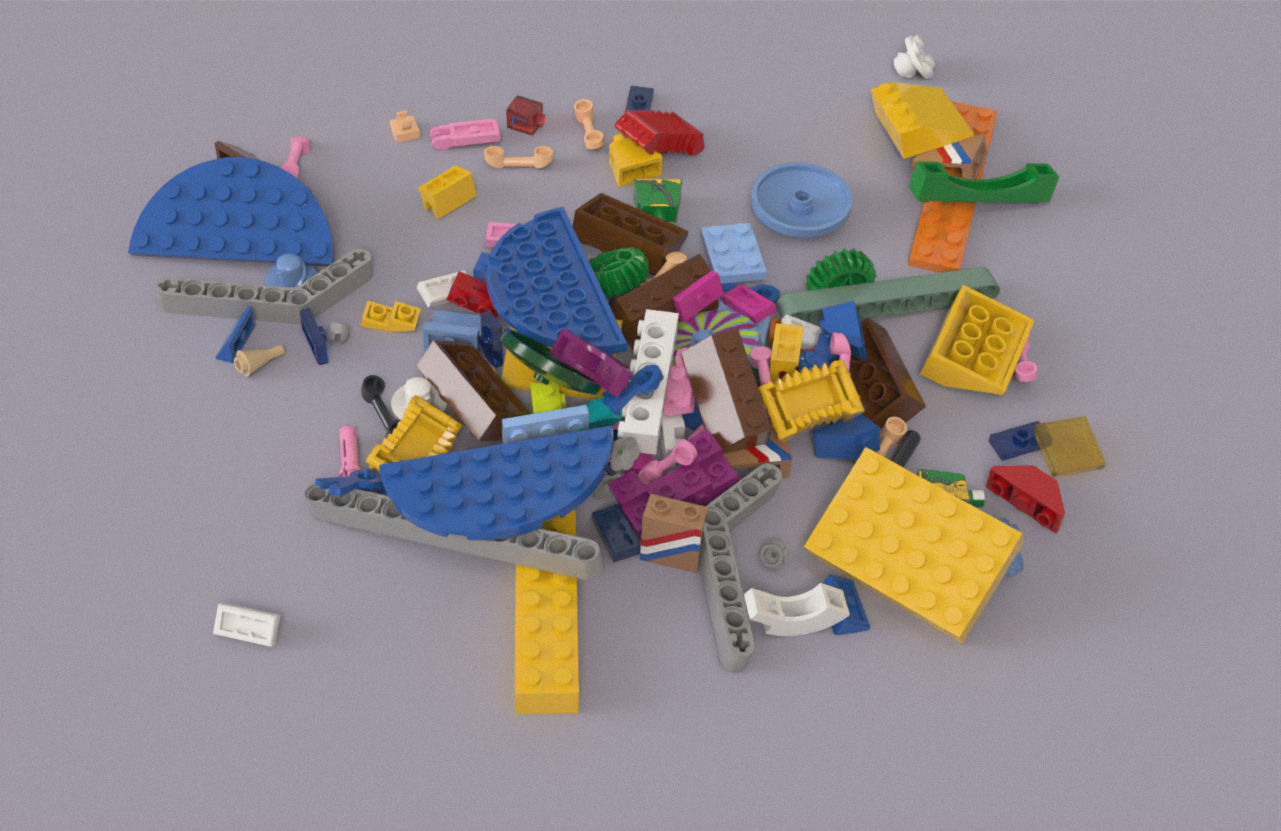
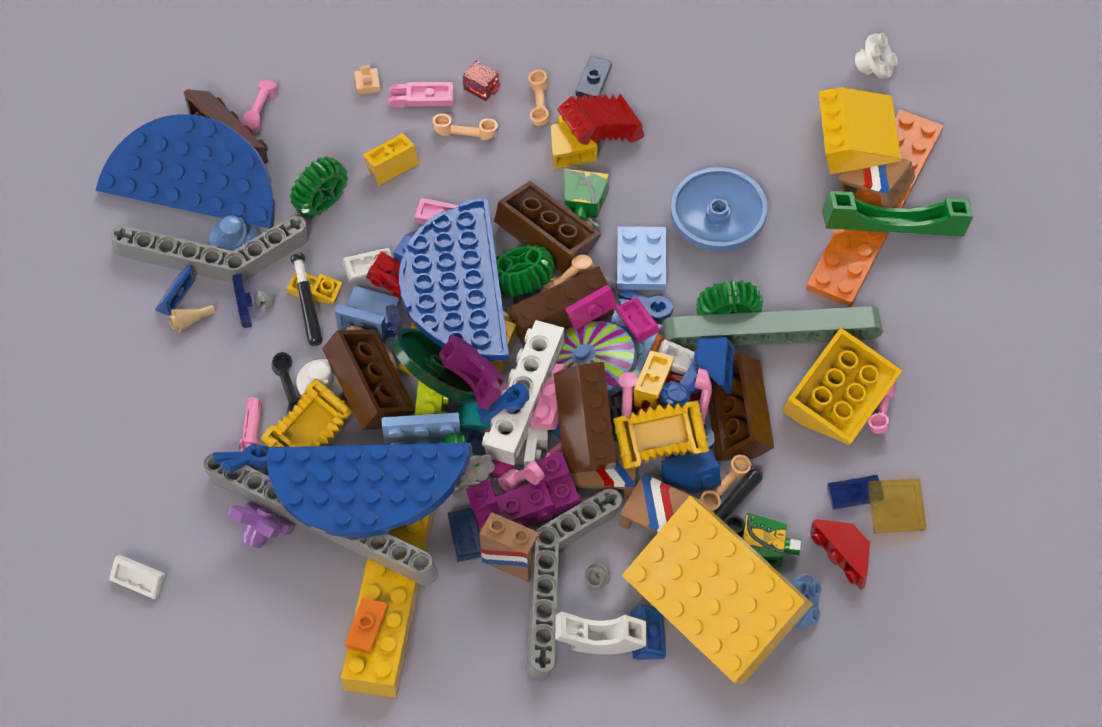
camera: 15 degrees right, 10 degrees up
(377, 219) = (319, 186): none -> green gear
(381, 550) = (259, 523): none -> medium lavender plant
(391, 339) = (307, 304): none -> black piece
(533, 632) = (366, 625): none -> orange plate
(815, 475) = (651, 504): none -> panel

